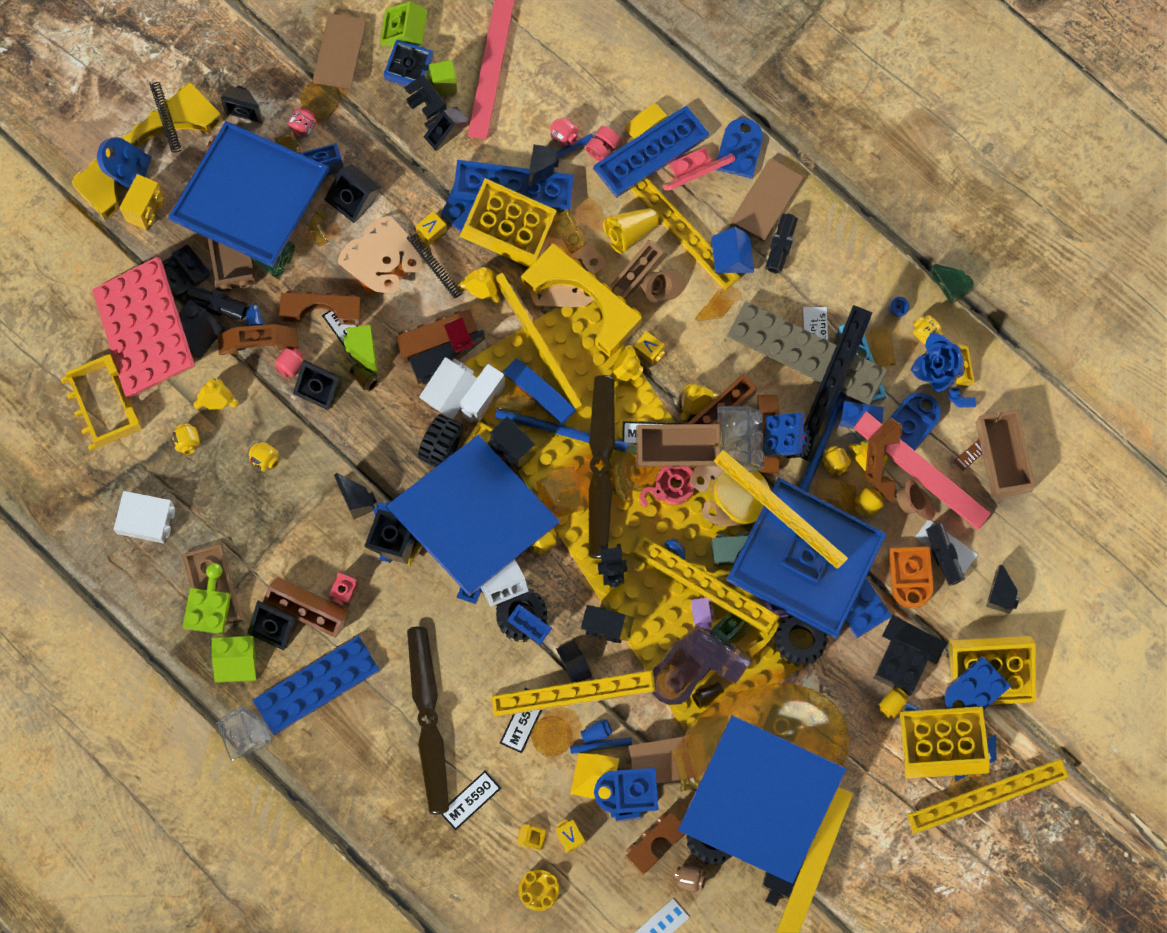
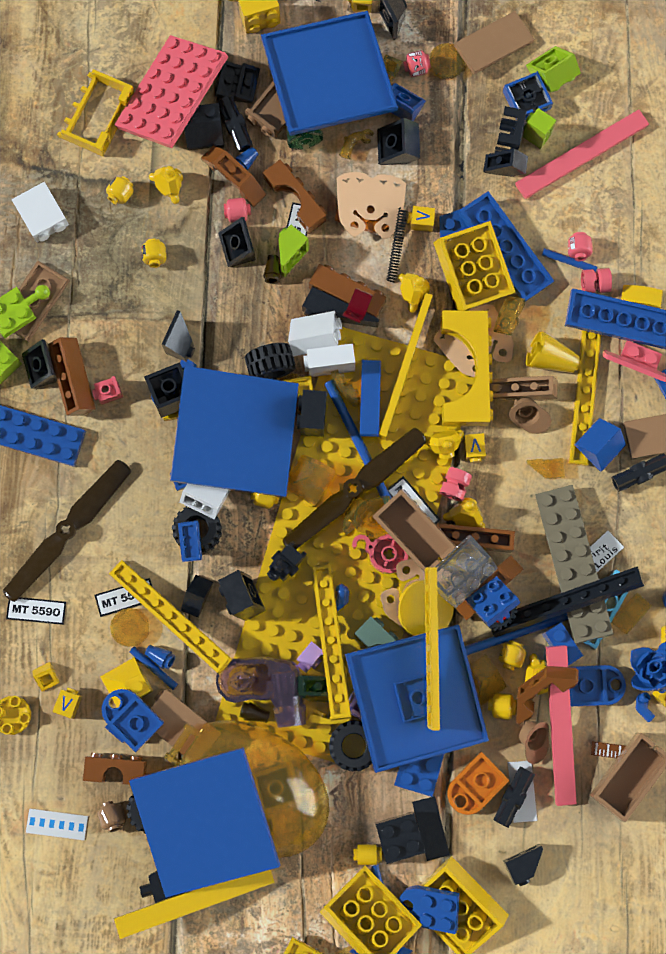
camera: 50 degrees right, 5 degrees up
(542, 164) = (539, 251): black slope -> none
(666, 388) = (456, 483): none -> coral wheel

